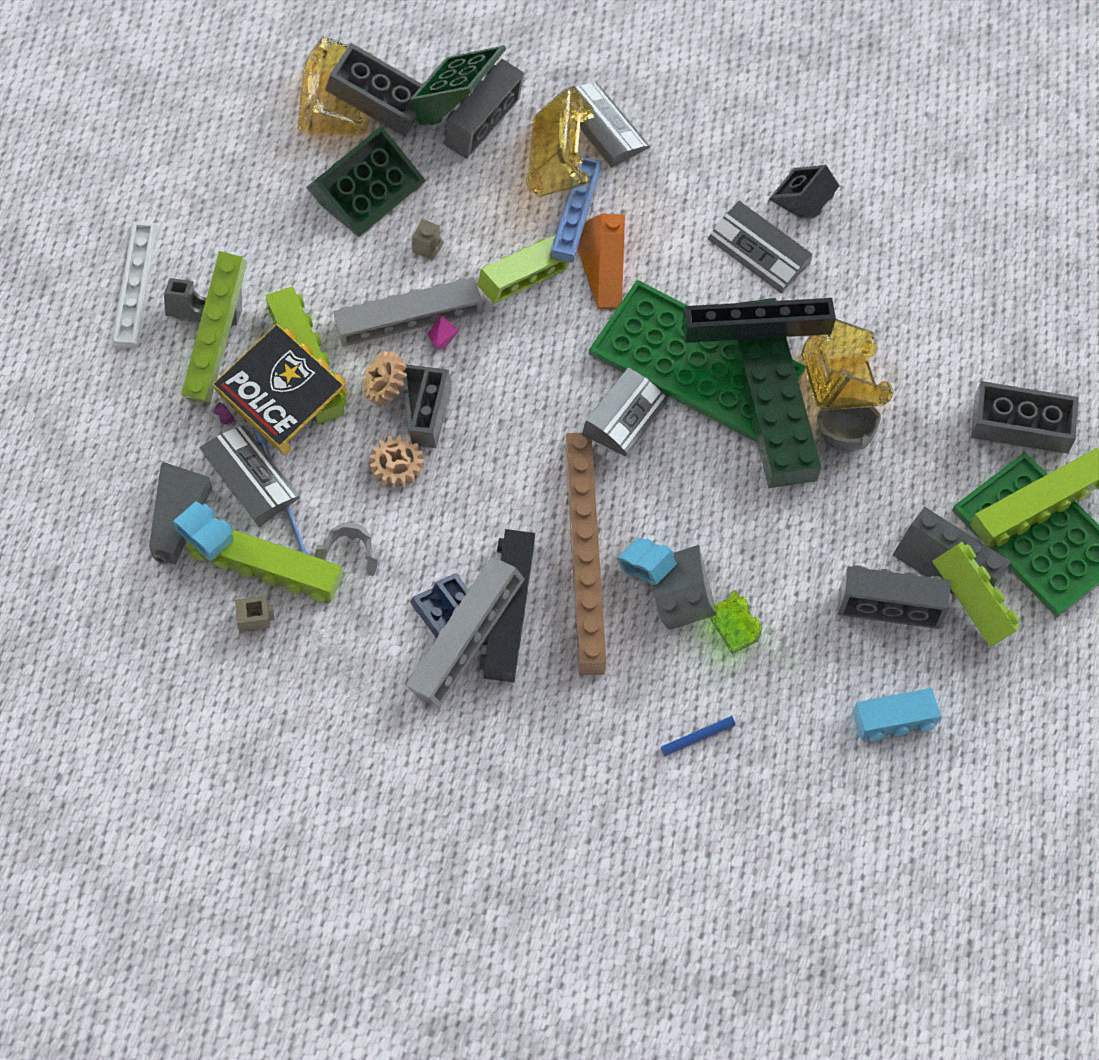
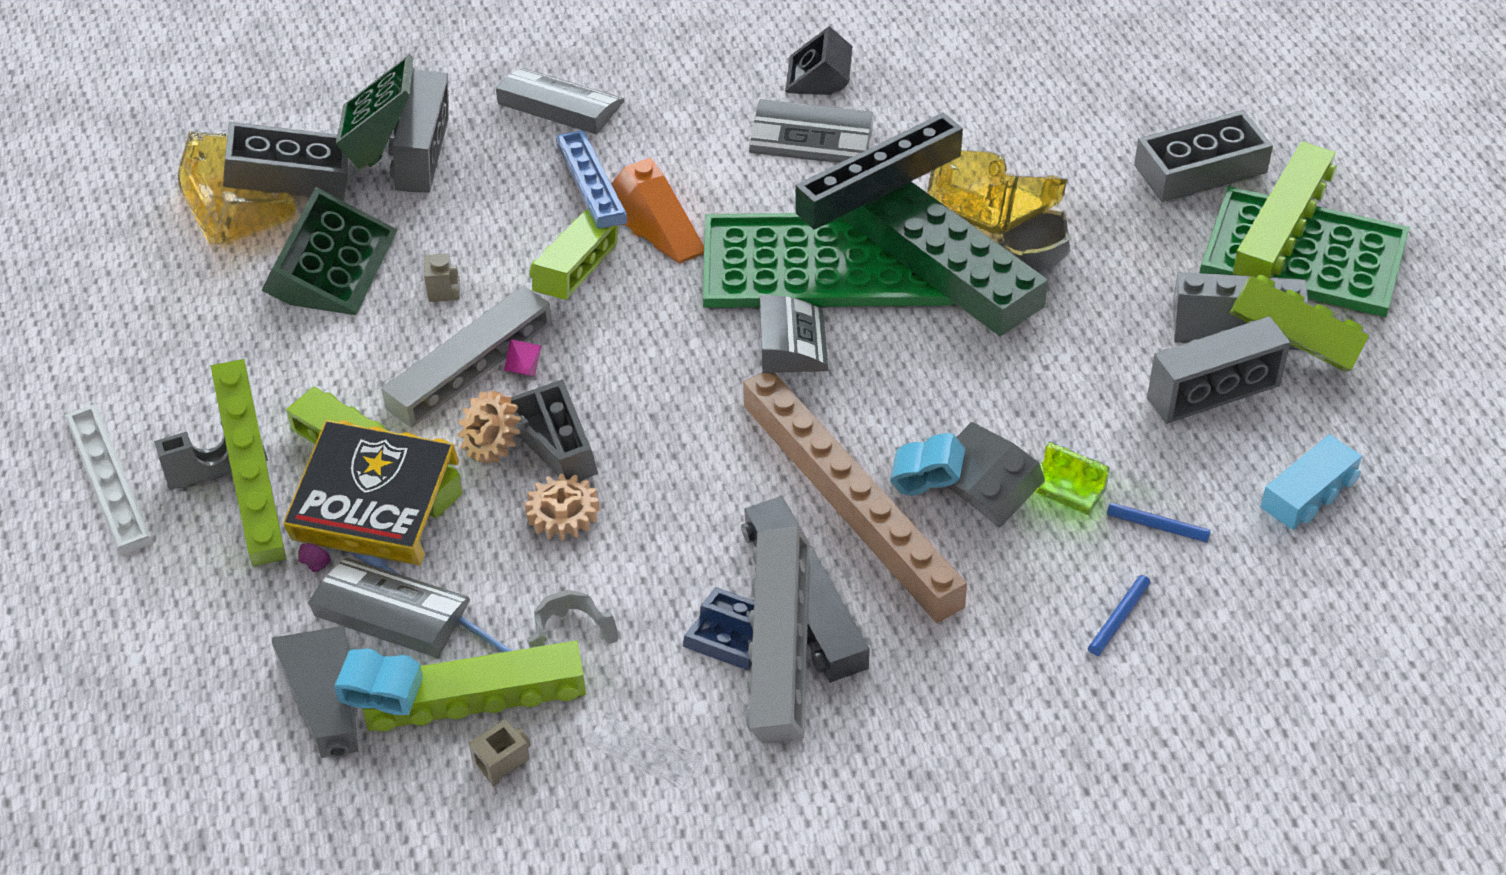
camera: 25 degrees left, 15 degrees down
(554, 144) = (529, 127): clear yellow windscreen -> none
(774, 685) = (1158, 522): none -> blue bar

